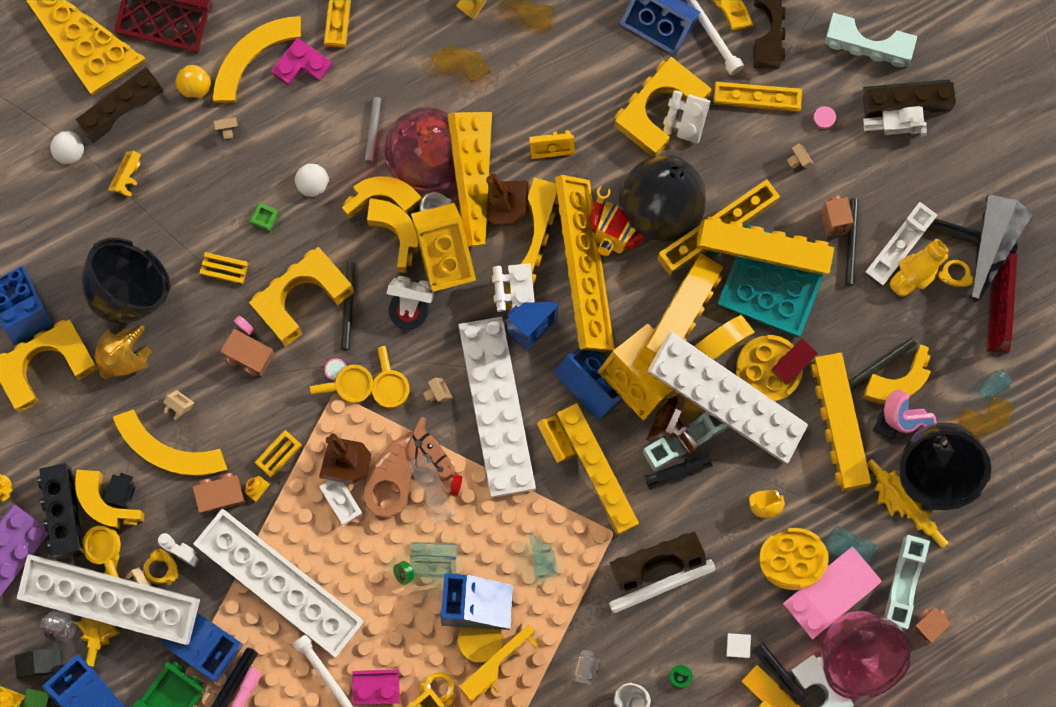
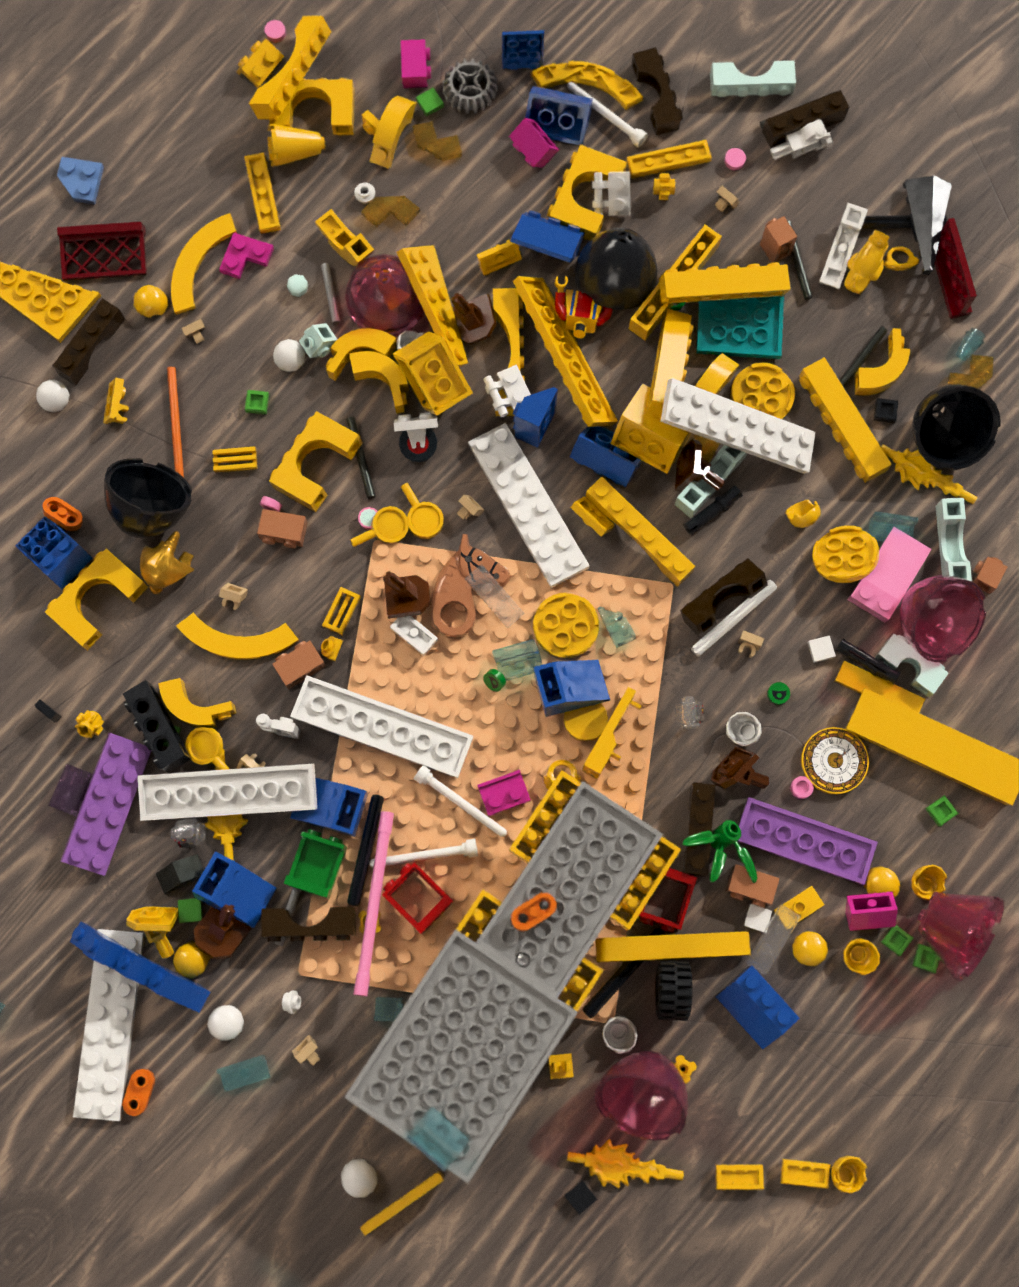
camera: 15 degrees left, 0 degrees up
(39, 271) = (63, 514): none -> orange plate
(120, 491) = (205, 690): black window -> none
(161, 556) = (265, 737): yellow piece -> none
(178, 210) = (175, 420): none -> orange piece
(343, 111) = (297, 285): none -> light aqua tile
(344, 175) = (318, 340): none -> light aqua brick
(403, 82) = (350, 247): none -> yellow arch
(440, 43) = (364, 198): none -> white plate
(455, 485) = (515, 586): red tile -> none
(492, 540) = (566, 625): none -> yellow tile
(606, 142) = (548, 236): none -> blue slope
(625, 39) = (533, 143): none -> dark pink brick
(669, 615) = (751, 641): none -> tan tile
(741, 125) = (664, 186): none -> yellow gear
(794, 361) = (784, 380): dark red tile -> none
(901, 418) = (898, 398): bright pink animal -> none

